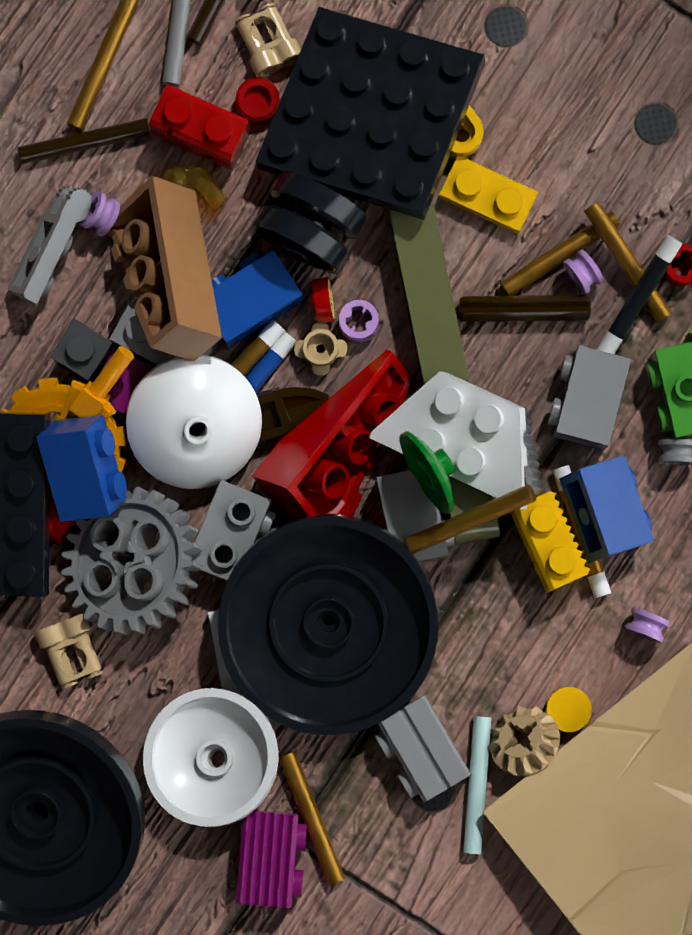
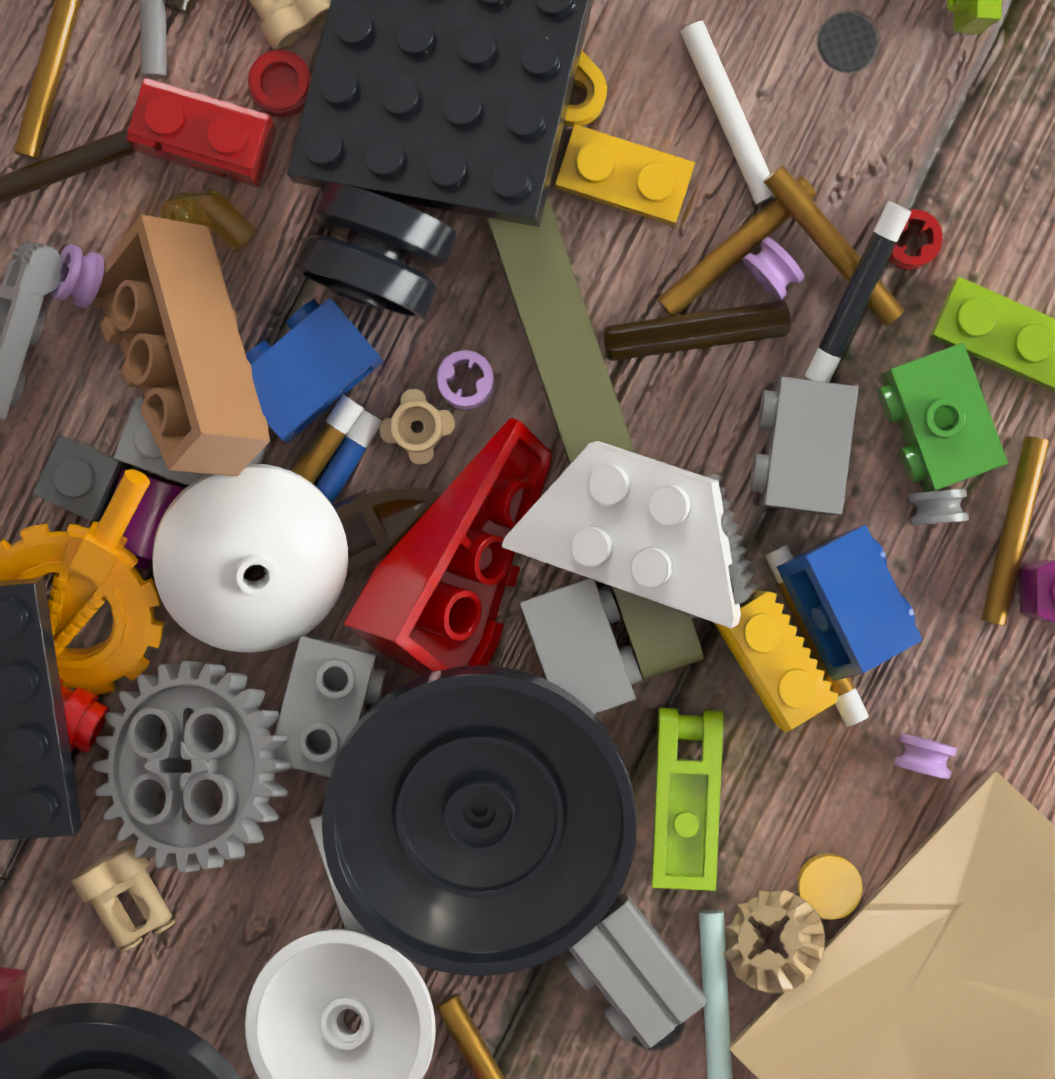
camera: 10 degrees left, 5 degrees up
(82, 468) = (99, 649): blue brick -> none
(322, 300) = (410, 358): red tile -> none
(430, 470) = (596, 588): green dish -> none
(471, 519) = (663, 650): pearl gold bar -> none
(475, 635) = (687, 802): none -> lime plate
(565, 159) = (728, 110): none -> white bar

